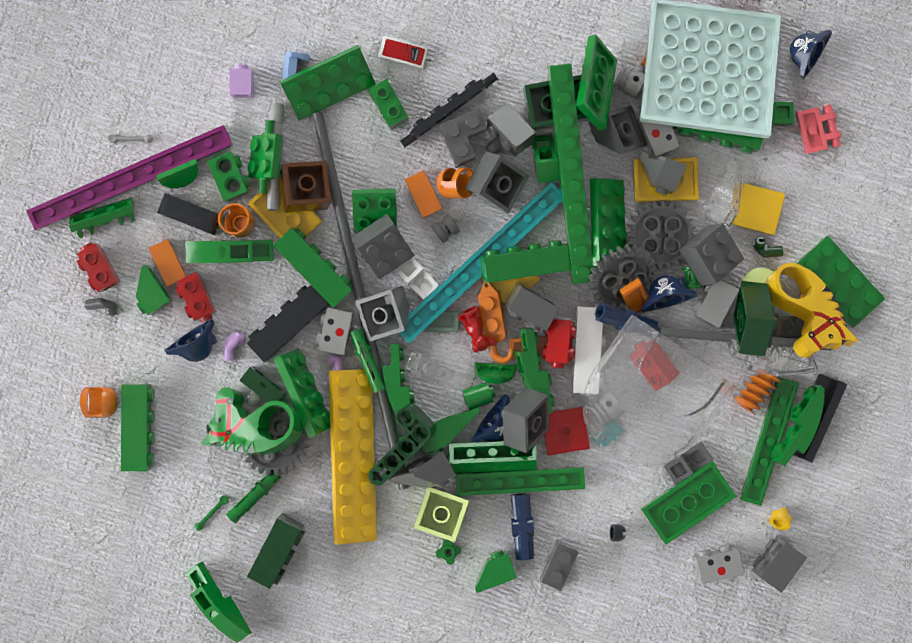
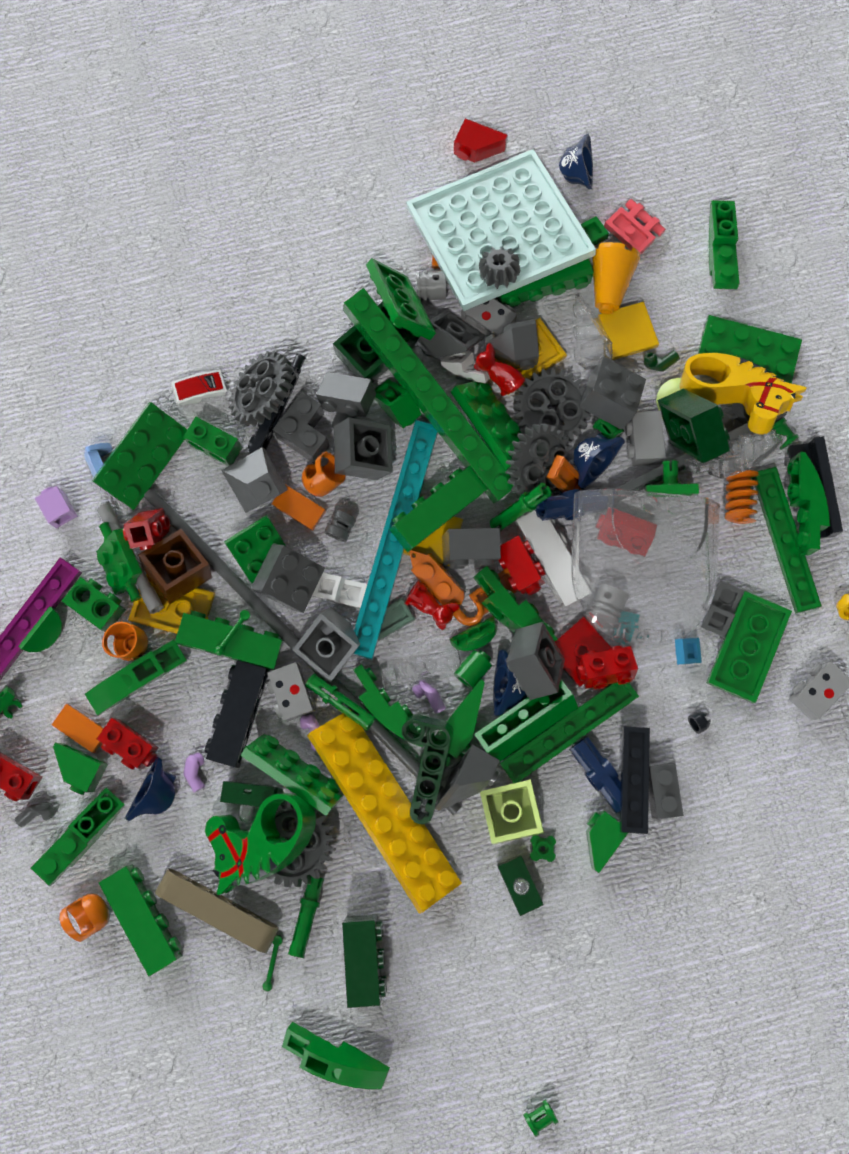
camera: 30 degrees left, 10 degrees down
(124, 342) = (79, 837): none -> green slope
(189, 214) = (74, 665): black beam -> none
(193, 453) = (217, 910): none -> dark tan beam
(300, 144) = (146, 528): none -> red brick
(334, 256) = (244, 615): none -> green hinge
(402, 155) = (254, 480): none -> dark grey slope
(416, 566) = (520, 885): none -> dark green piece
(436, 403) = (432, 695): none -> lavender arm
(449, 87) = (261, 388): none -> dark grey gear
(542, 545) = (635, 780): none -> black panel
(572, 454) = (607, 667): none -> red brick
(593, 300) = (526, 503): none -> green pin
(618, 166) = (463, 365): none -> white slope
(639, 192) = (501, 374): none -> red animal
(642, 478) = (688, 651): none -> dark azure plate
(689, 99) = (499, 267): none -> dark grey gear
(707, 352) = (671, 484): none -> green tile
(772, 161) = (612, 274): none -> light orange cone
(821, 360) = (782, 428): none -> green bush
(875, 187) = (722, 245): none -> green slope

